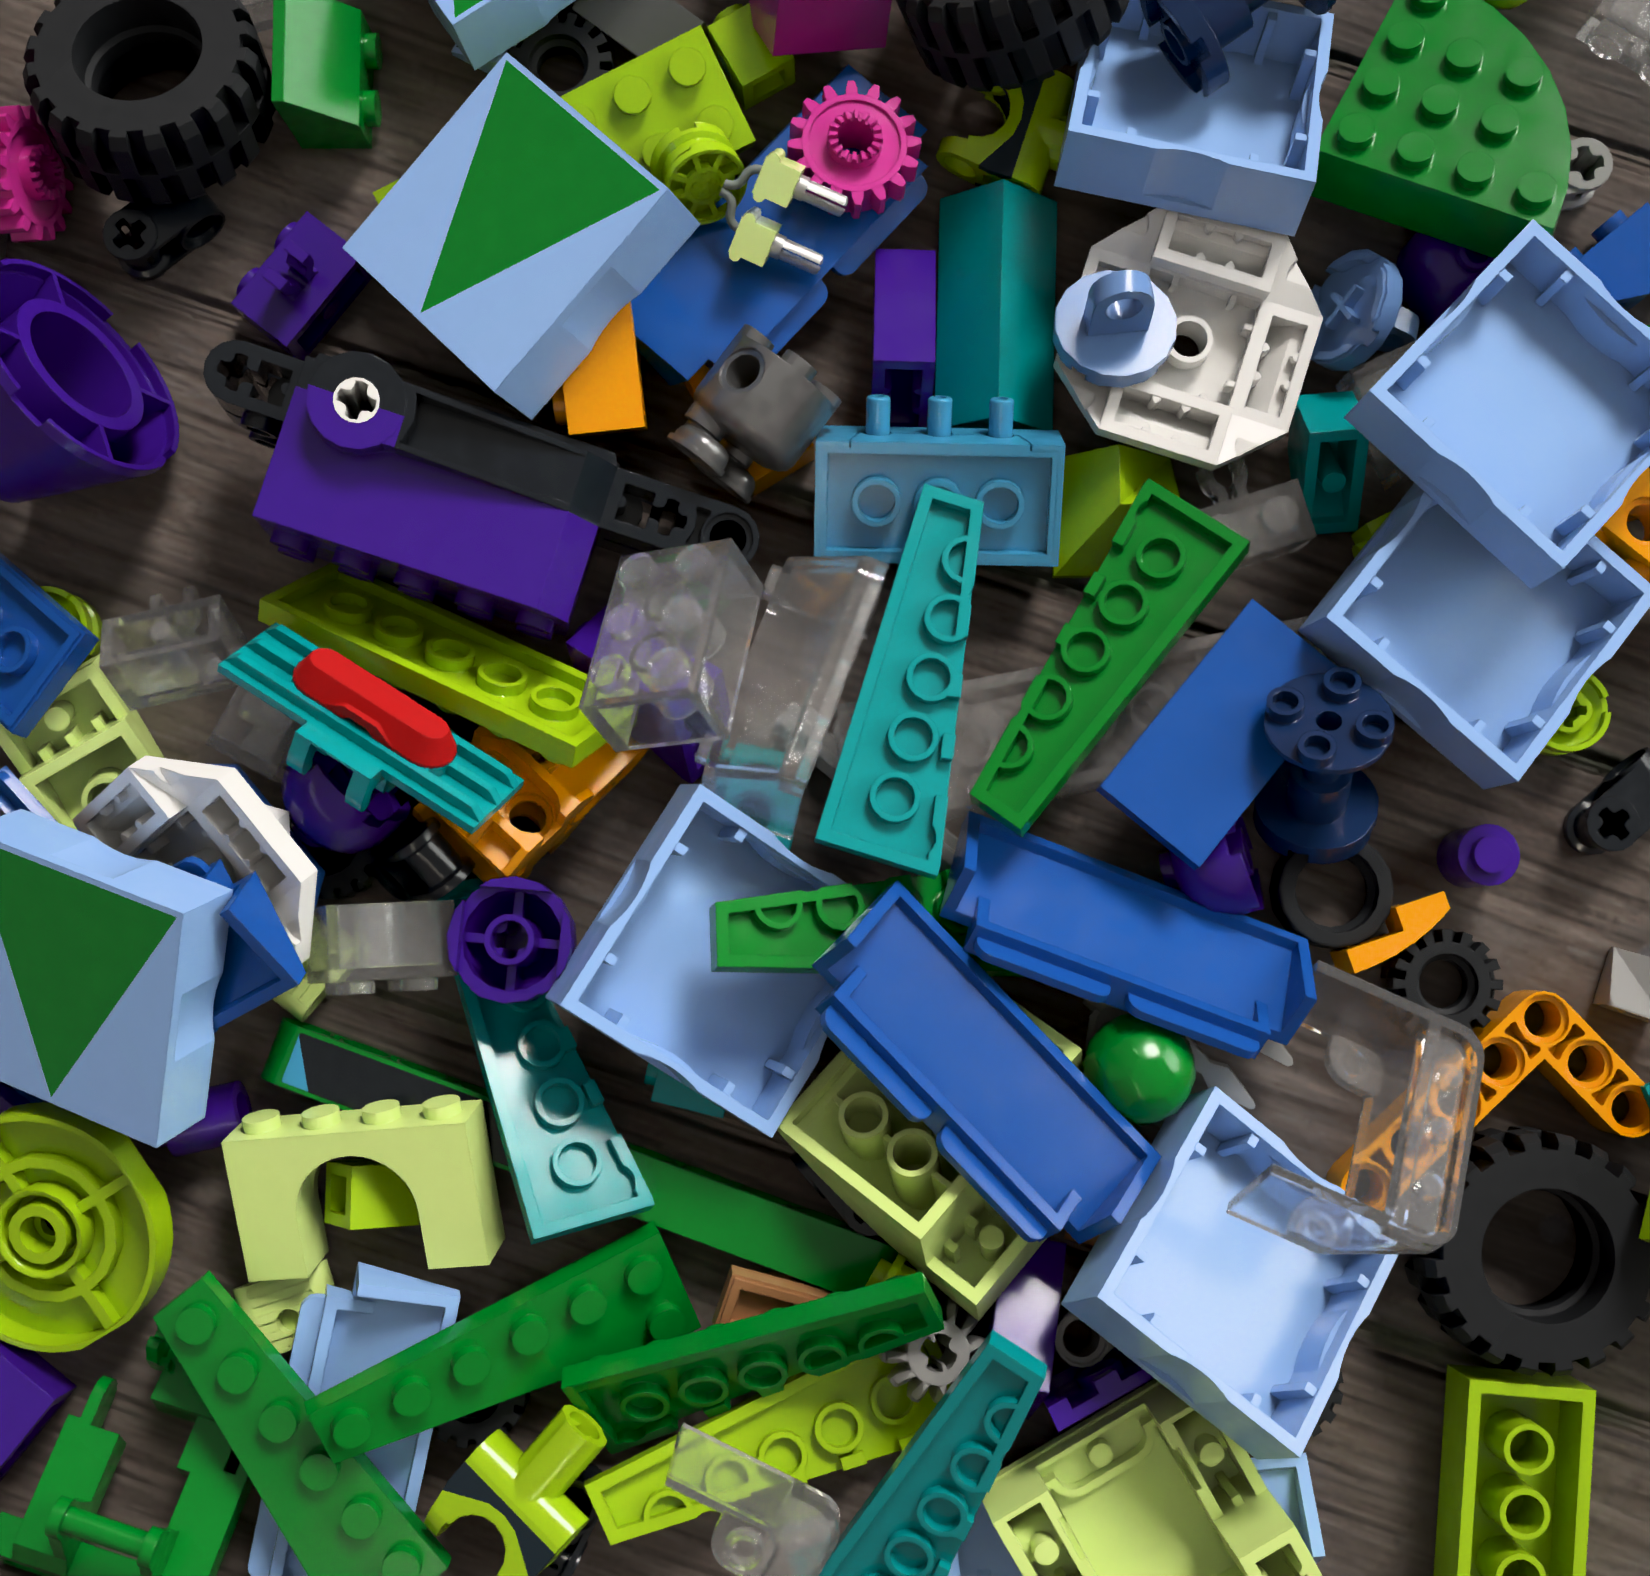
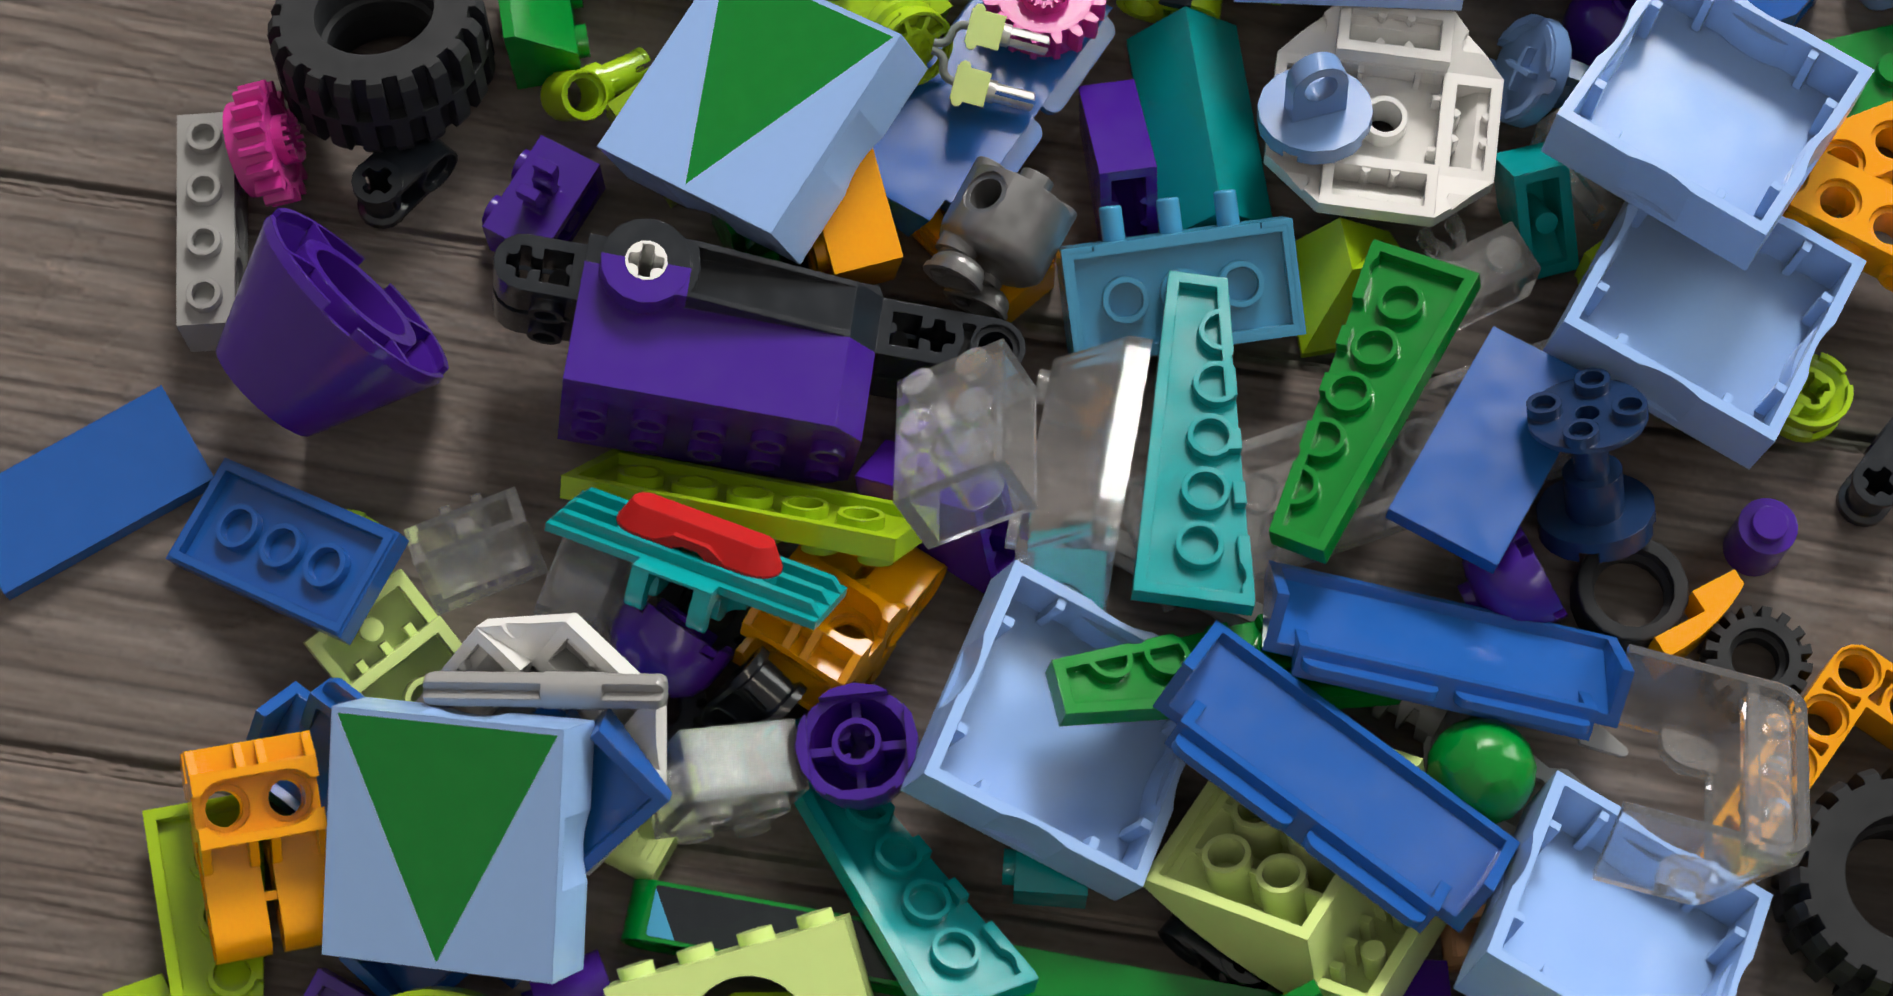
camera: 10 degrees left, 15 degrees down
(190, 846) = (546, 689): none -> light grey axle
(380, 157) = (596, 83): none -> lime pin

